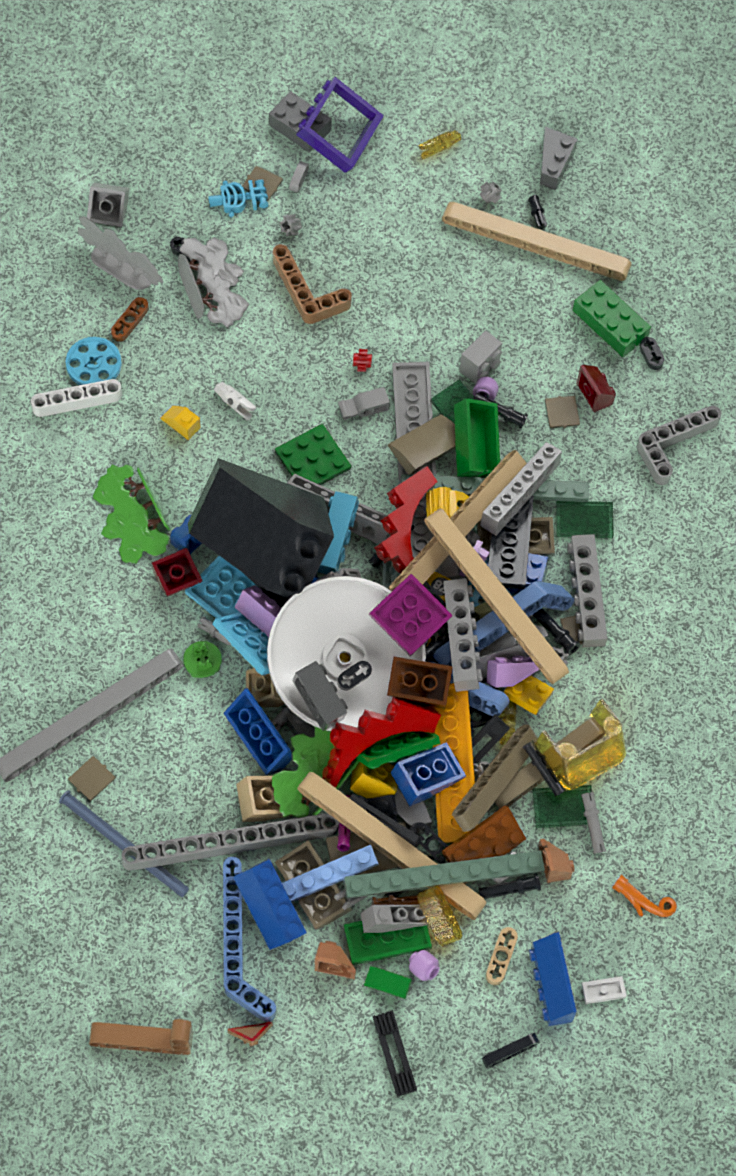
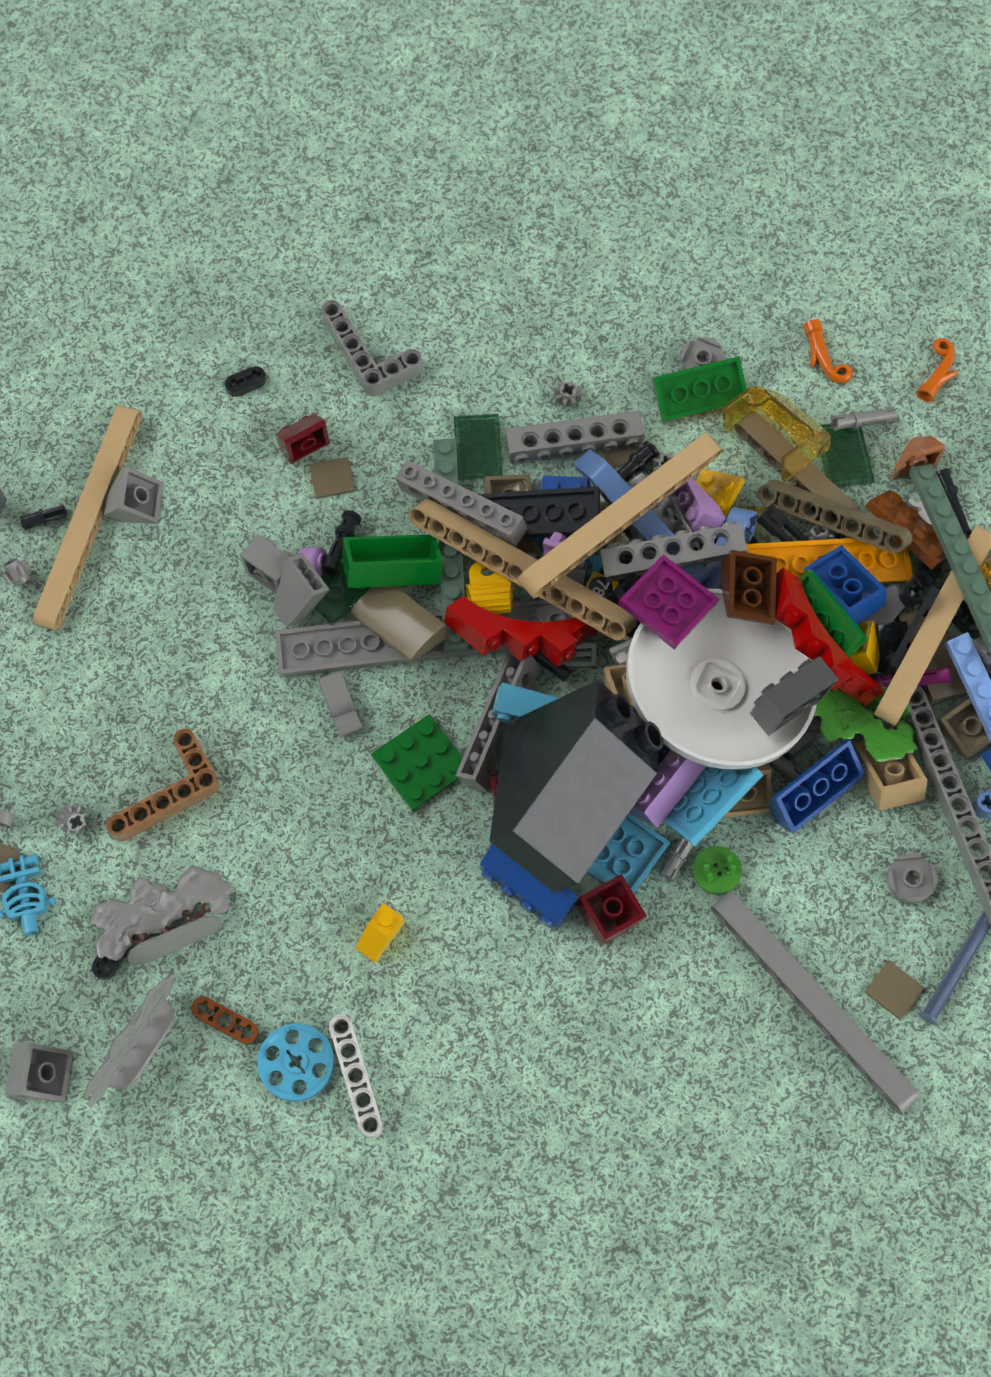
camera: 90 degrees left, 5 degrees up
(129, 517) = (530, 984): bright green plant -> none
(170, 794) = (919, 868): none -> light grey plate
(235, 400) = (344, 865): white hinge -> none
(357, 679) = (751, 664): black beam -> none
(362, 360) = (276, 710): red gear -> none
(456, 372) = (298, 590): none -> light grey slope
(543, 767) = (807, 471): black pin -> none
(549, 272) = (134, 498): none -> light grey slope
(611, 318) = (201, 424): green piece -> none
(628, 691) = (699, 388): none -> green plate
(630, 584) = (568, 394): none -> light grey gear
(664, 711) = (698, 348): none -> light grey plate
(664, 799) = (813, 330): none -> orange plant

